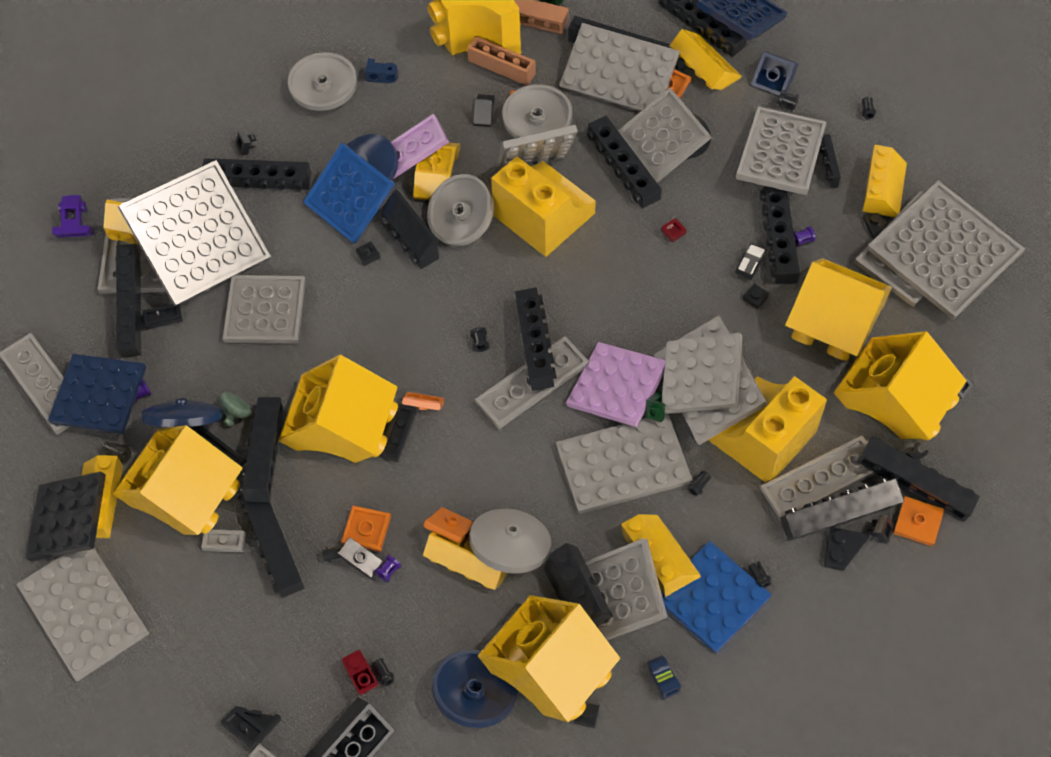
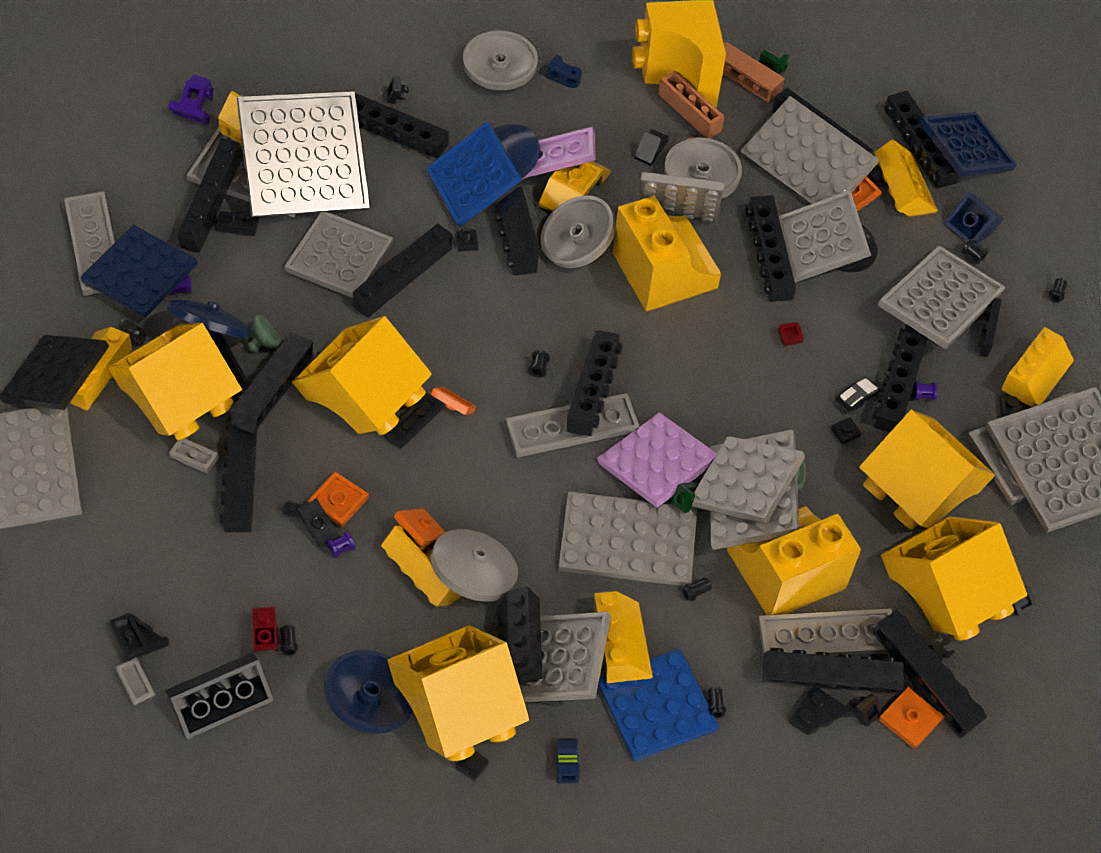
camera: 15 degrees right, 5 degrees down
(326, 302) = (402, 270): none -> black brick

